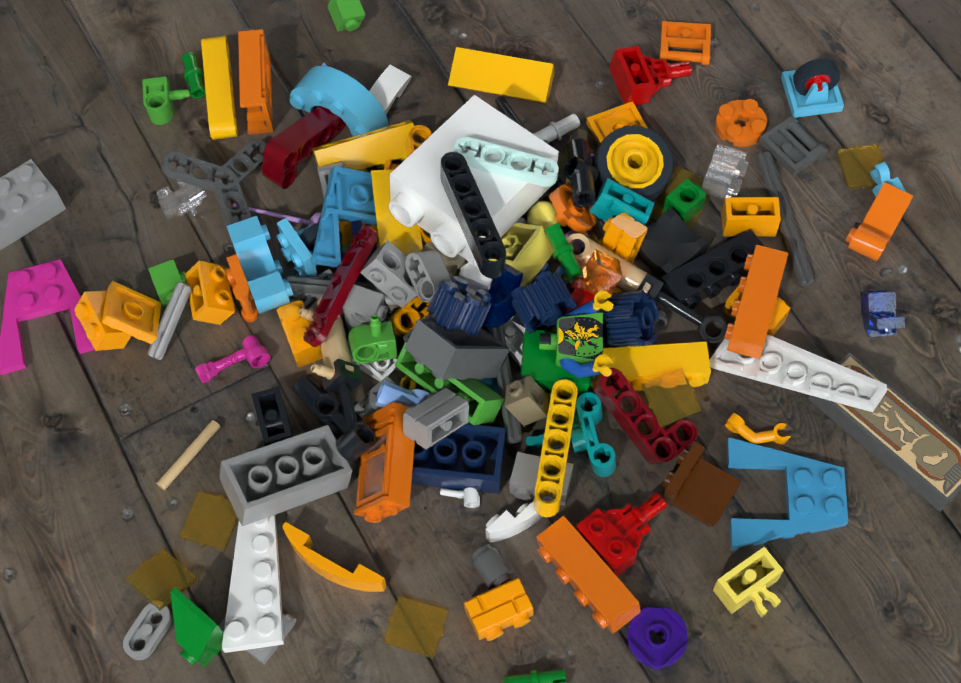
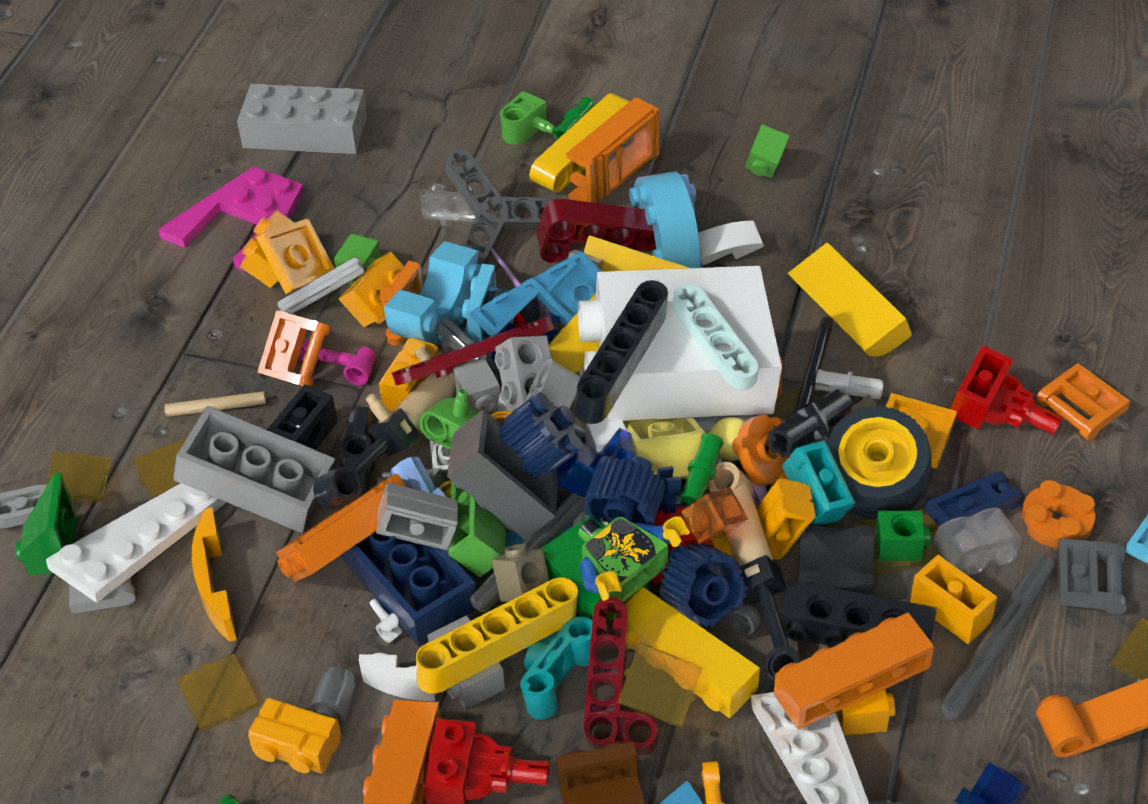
camera: 45 degrees right, 15 degrees down
(196, 378) = (285, 346): none -> plate
(696, 151) = (975, 498): none -> dark blue plate

